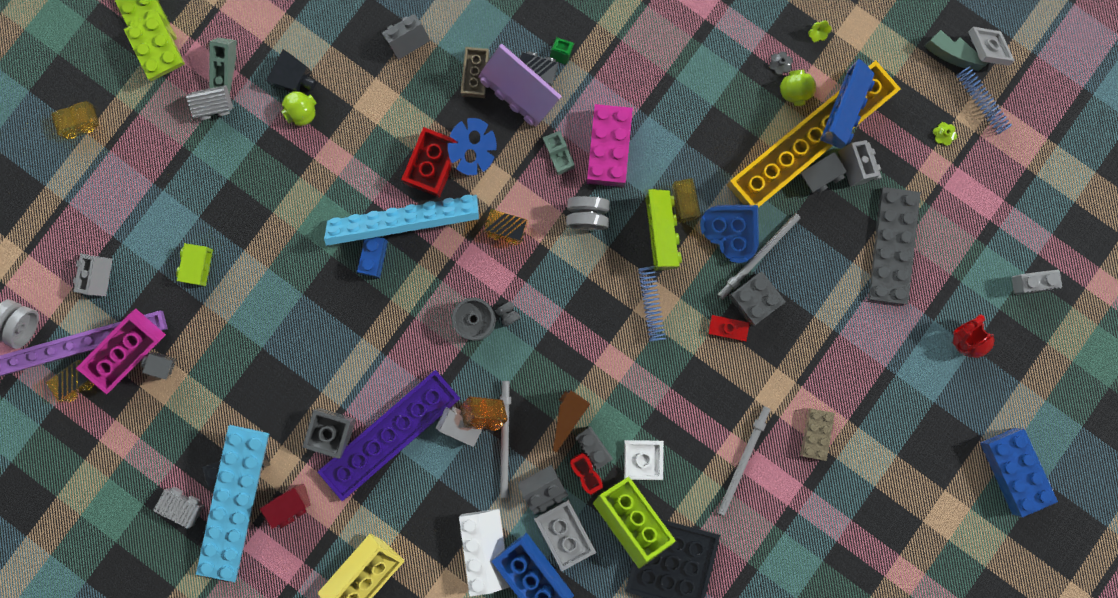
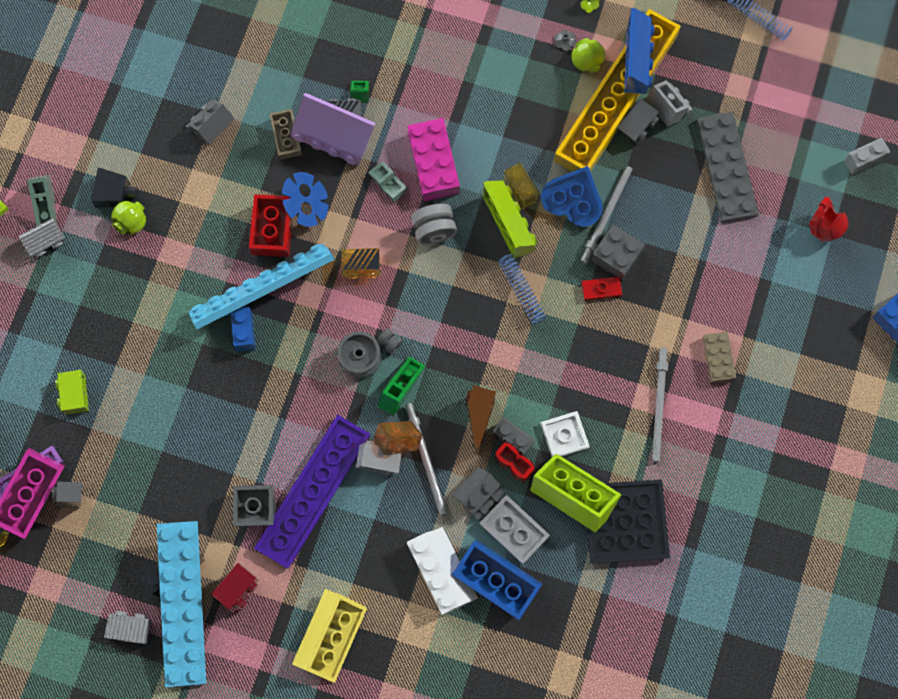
camera: 20 degrees left, 10 degrees down
(504, 361) = (400, 386): none -> green slope
(942, 136) = (736, 55): lime plant -> none

